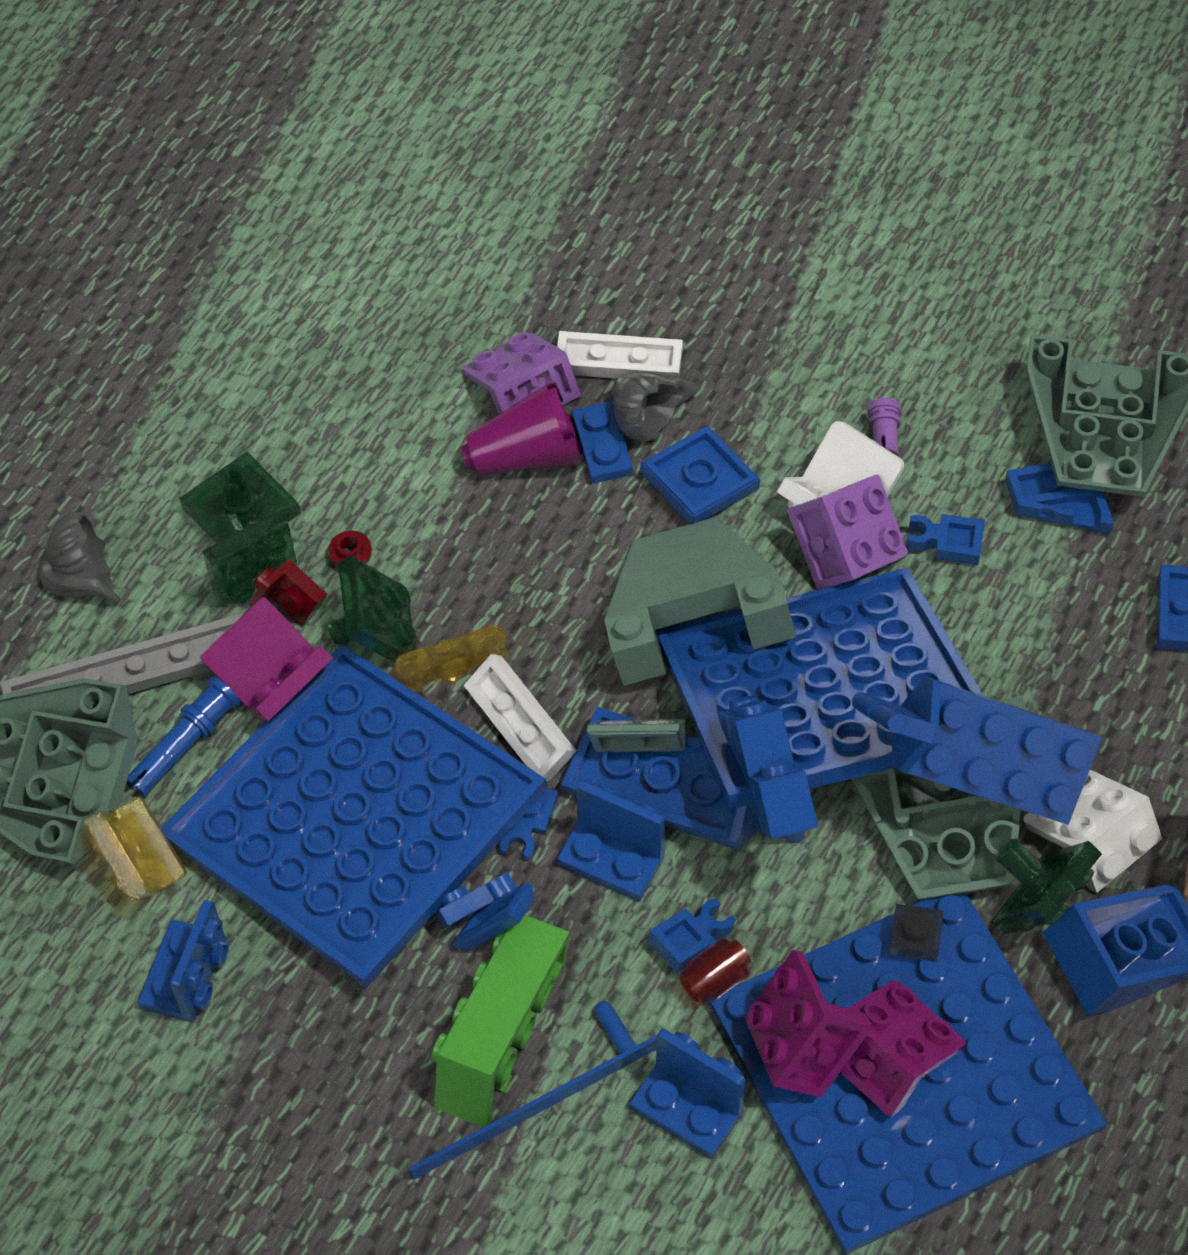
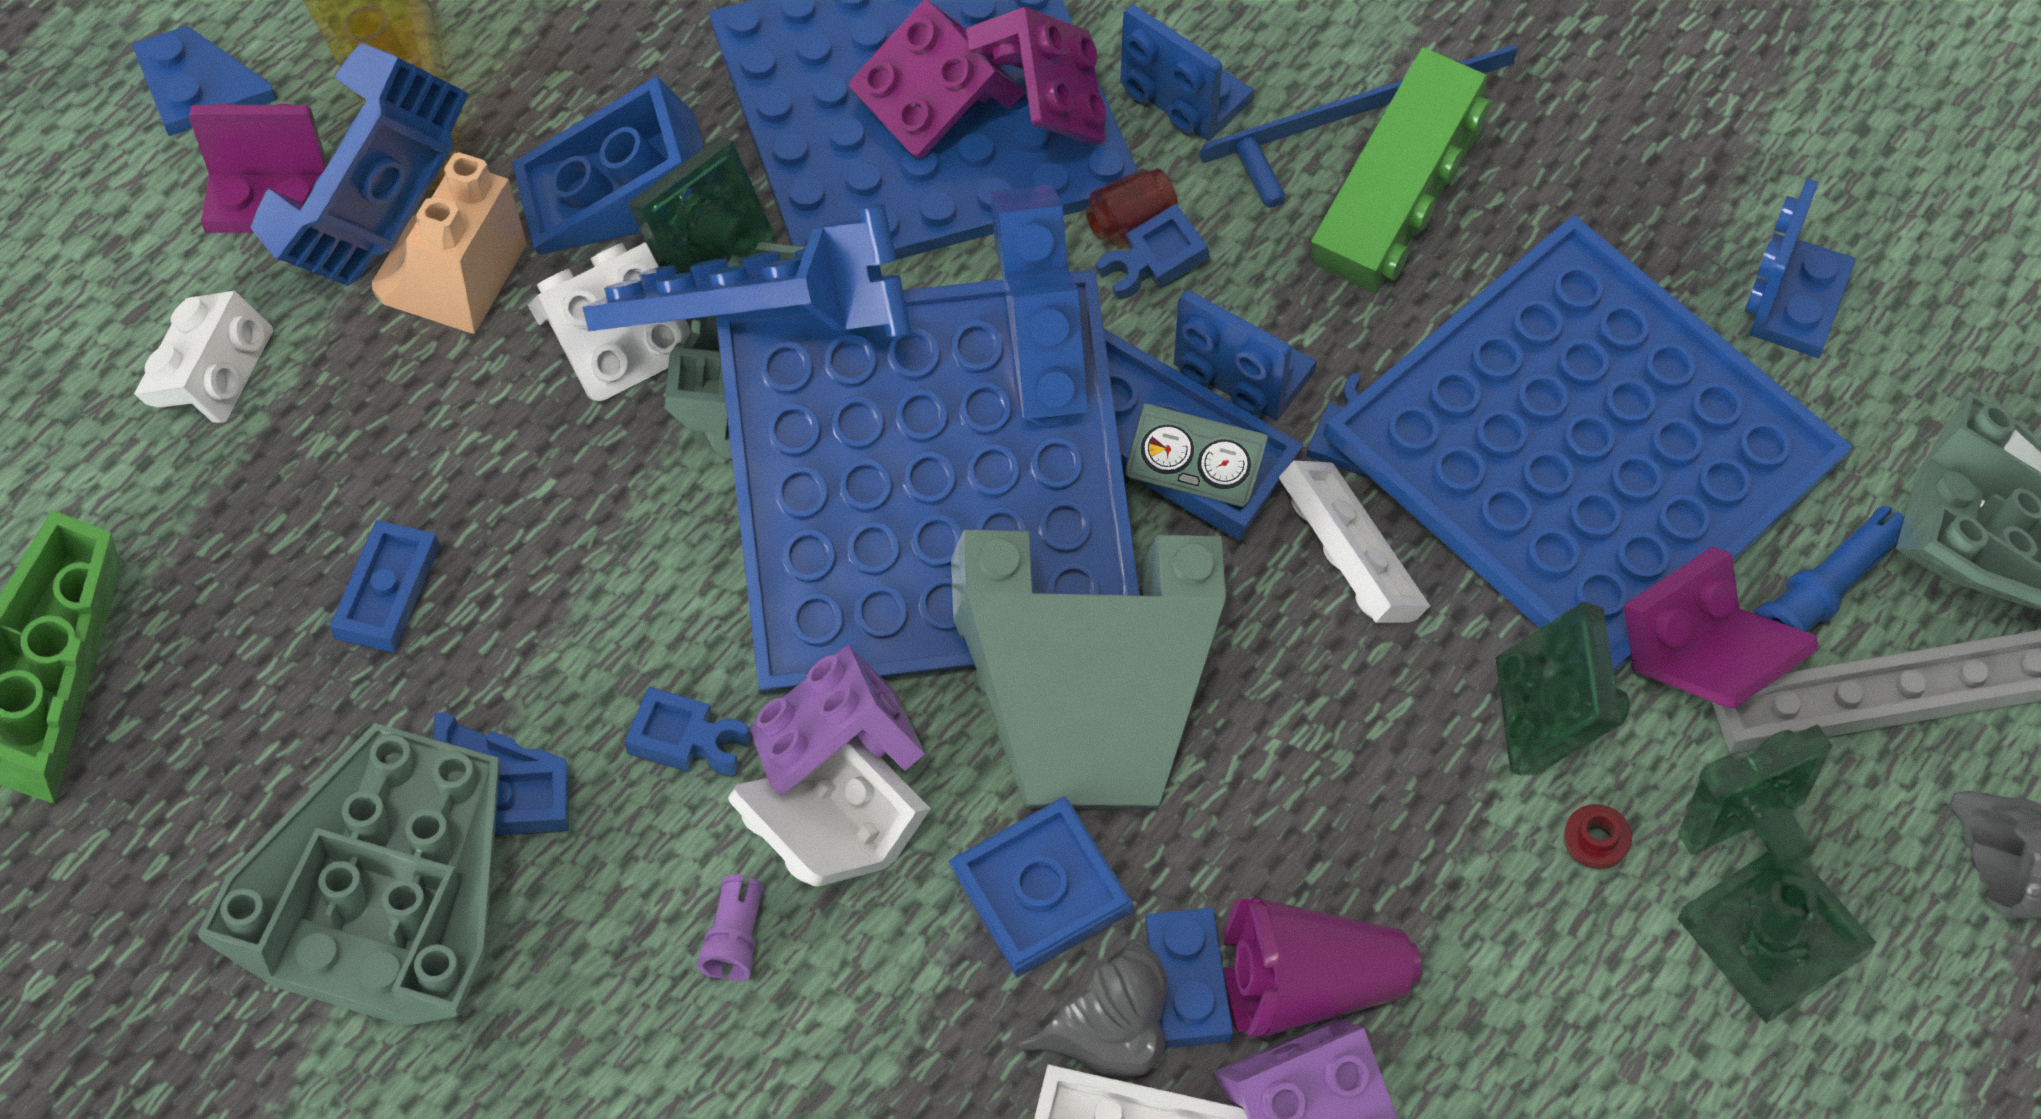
camera: 175 degrees left, 0 degrees up
(135, 850) = (1887, 406): clear yellow bracket -> none
(290, 590) = (1686, 747): dark red bracket -> none
(450, 658) = (1446, 632): clear yellow plate -> none
(462, 903) = (1430, 308): blue plate -> none
(495, 918) = (1405, 268): blue tile -> none
(916, 932) = (877, 186): clear smoke plate -> none

